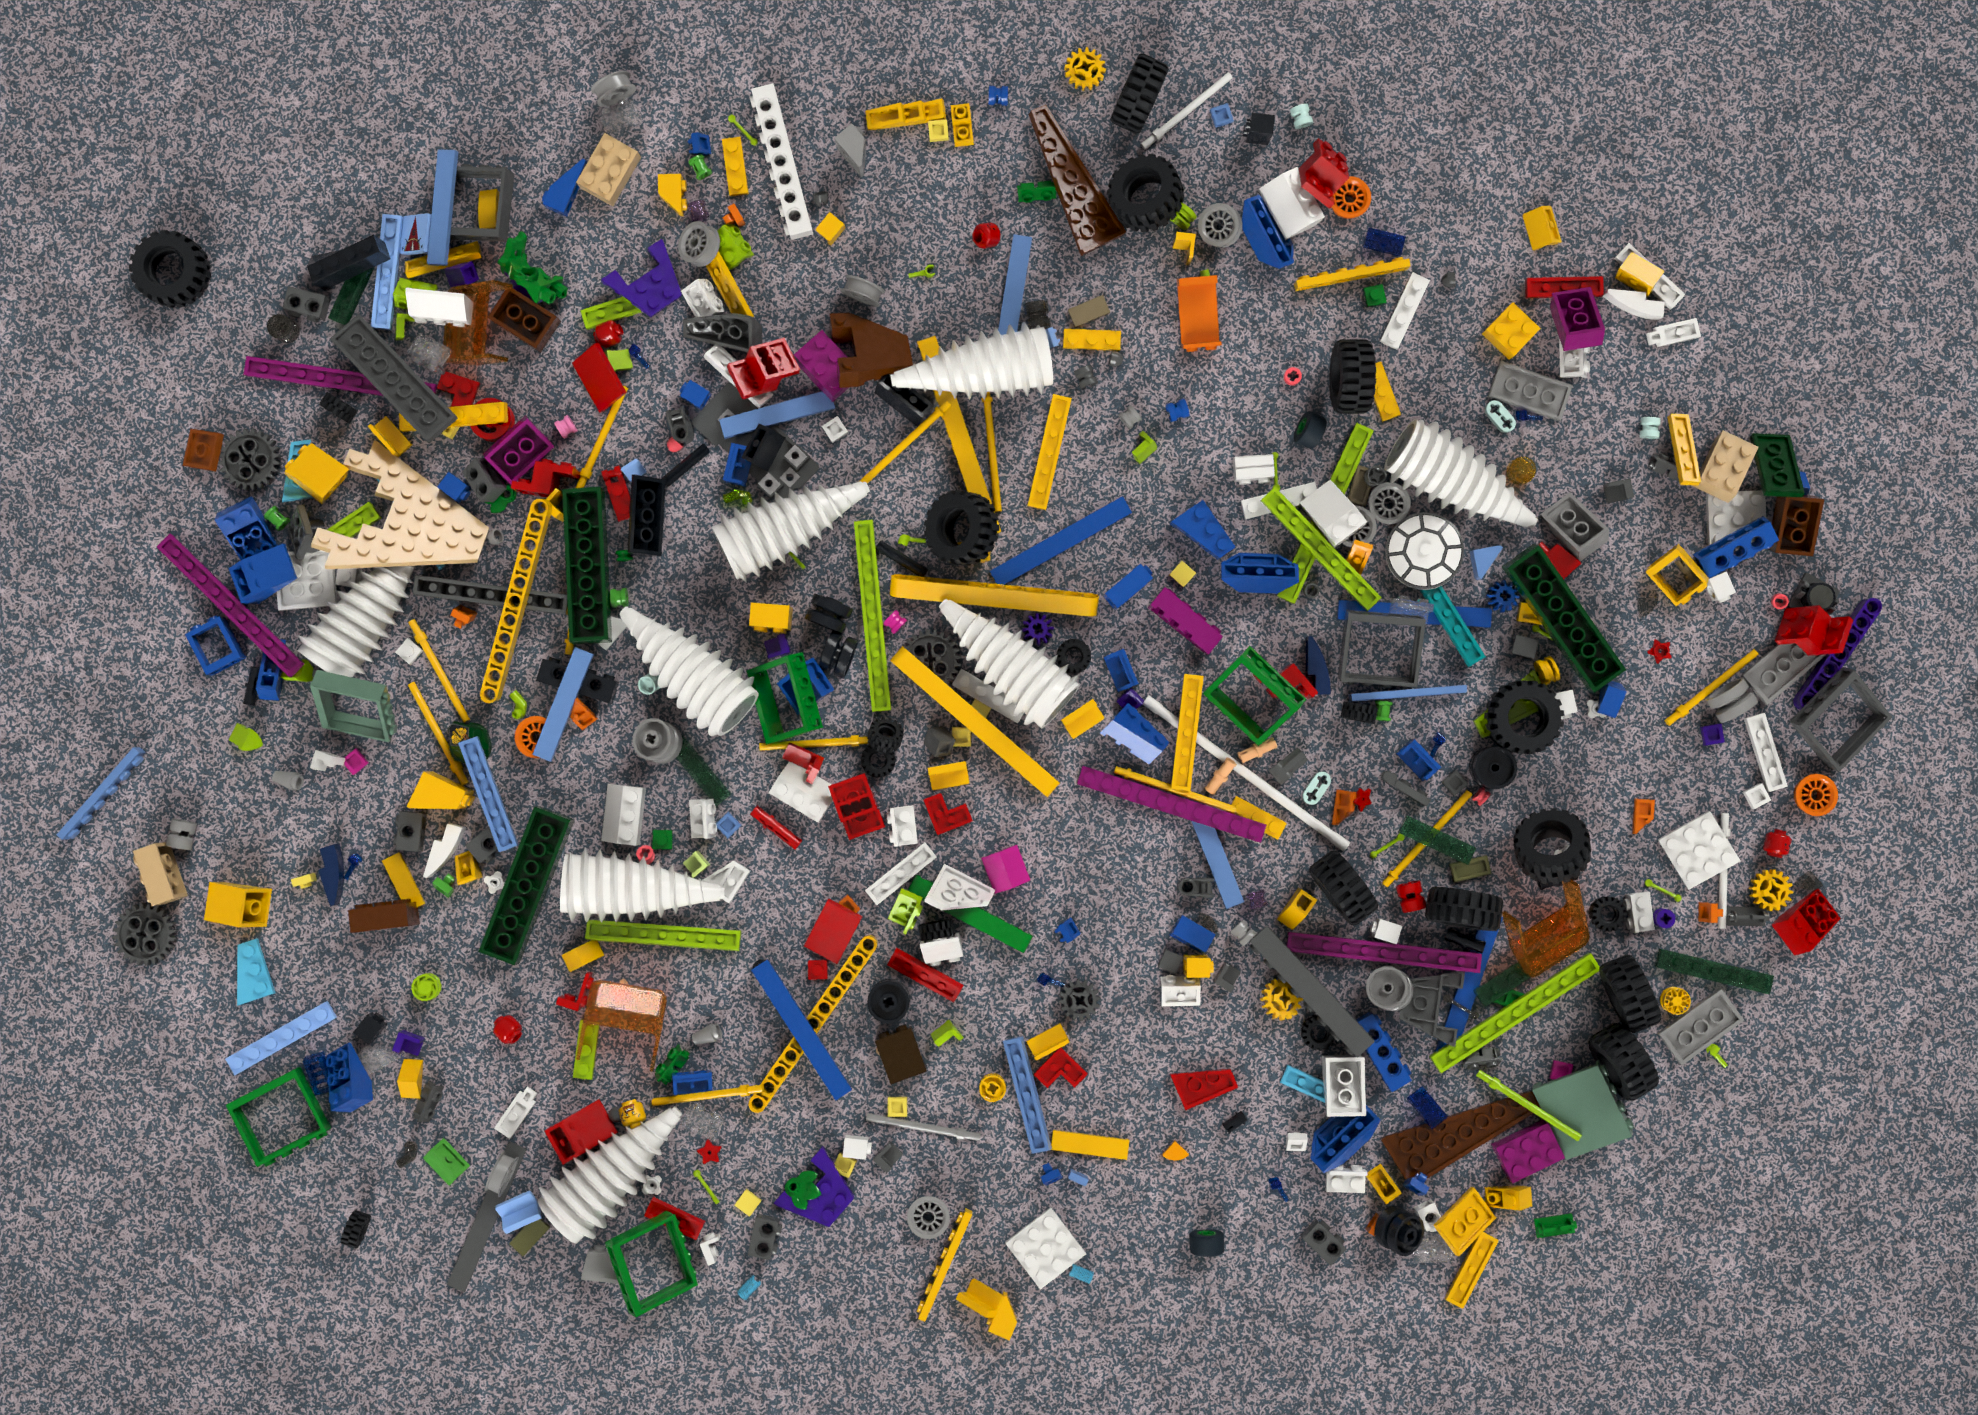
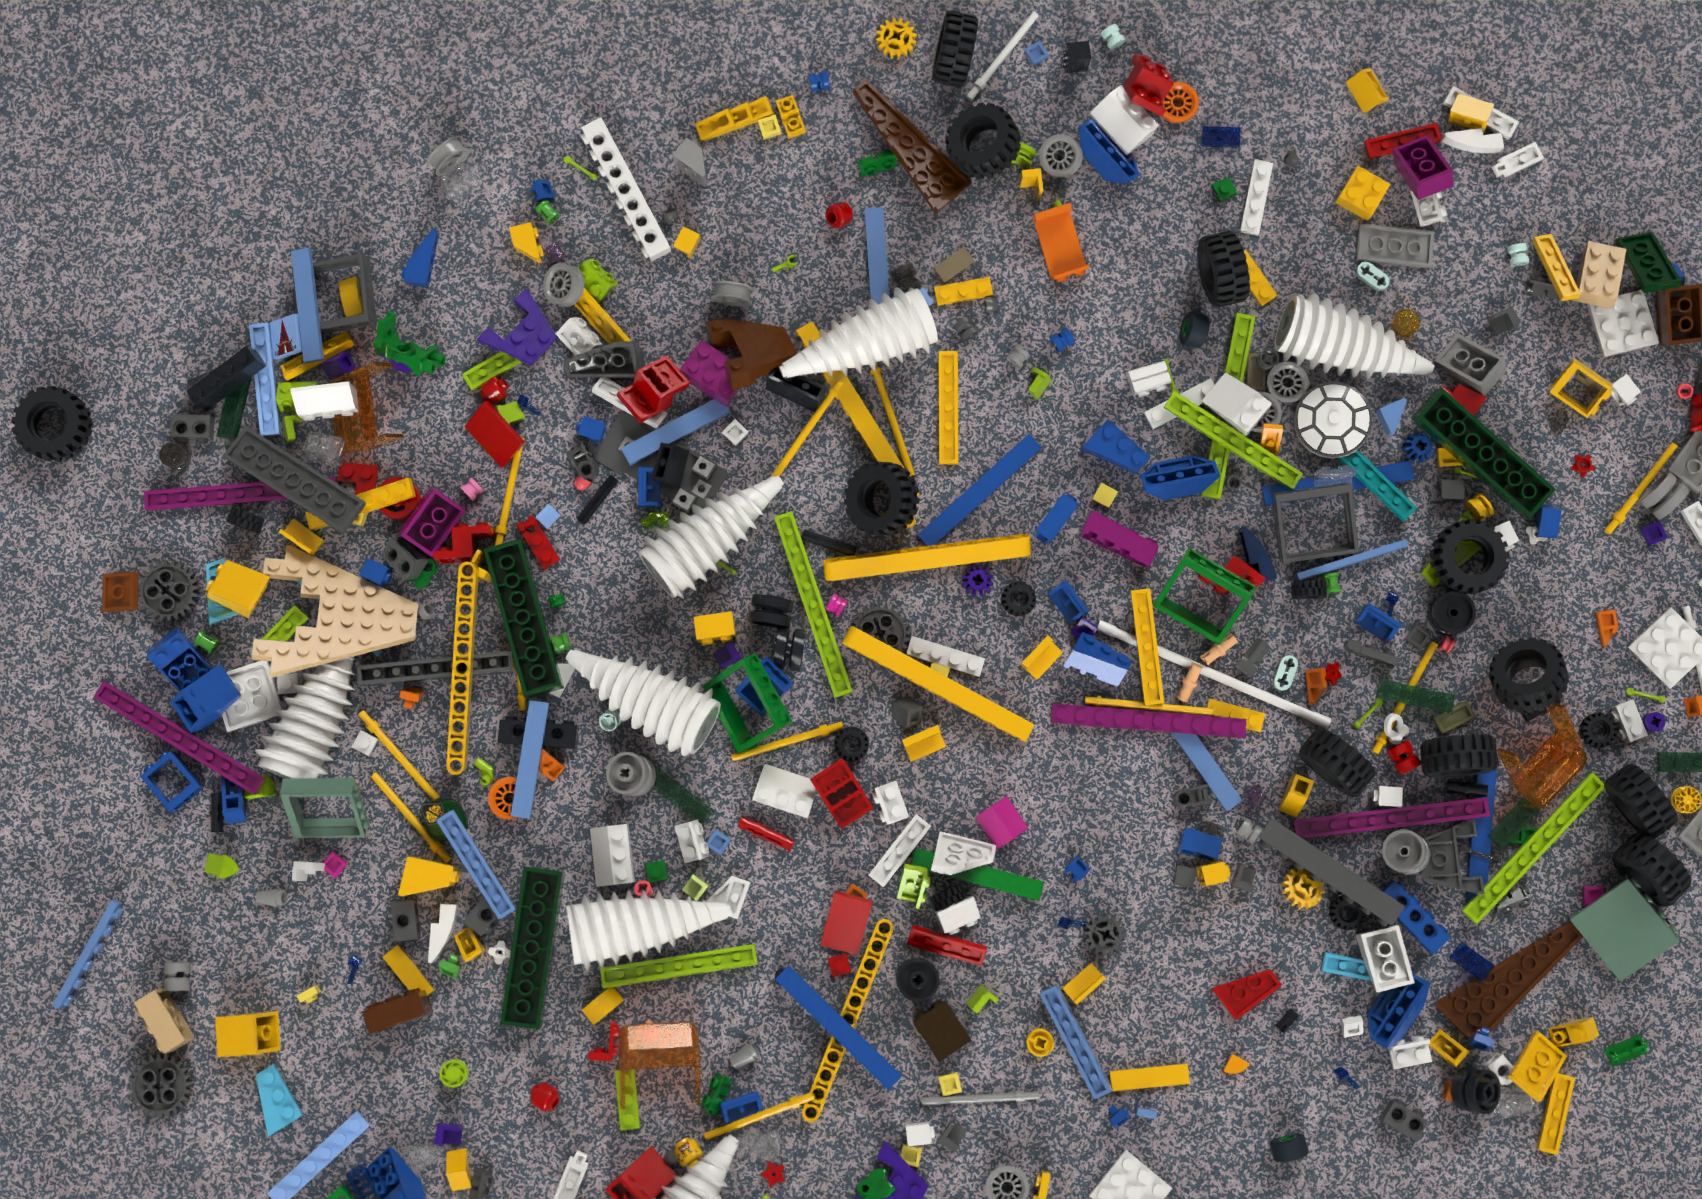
camera: 15 degrees left, 5 degrees down
(302, 531) = (241, 649): dark grey piece -> none
(333, 873) = (336, 980): dark blue slope -> none
(370, 1027) = (407, 1127): black brick -> none
(524, 319) = (409, 394): reddish brown brick -> none
(608, 169) = (460, 234): tan brick -> none
(646, 516) = (571, 557): black slope -> none
(734, 216) = (591, 251): orange tile -> none
(735, 166) = (581, 204): yellow plate -> none
(805, 759) = (779, 759): red bracket -> none
(882, 742) = (851, 724): black tyre -> none
(904, 540) = (827, 522): lime hand -> none
(945, 819) = (928, 786): red plate -> none
(962, 736) = (928, 701): light yellow tile -> none
(1013, 665) = (963, 619): white cone -> none
(1060, 1064) = (1100, 1003): red plate -> none
(1180, 991) = (1201, 902): white bracket -> none
(1296, 380) = (1169, 286): coral bush -> none
(1344, 275) = (1204, 170): yellow plate -> none
(1415, 869) = (1401, 729): none -> white piece
(1494, 1083) = (1532, 922): lime bar -> none
(1522, 415) = (1393, 270): clear blue hand -> none
(1527, 1151) = (1581, 981): magenta brick -> none
(1742, 537) = (1632, 338): blue brick -> none

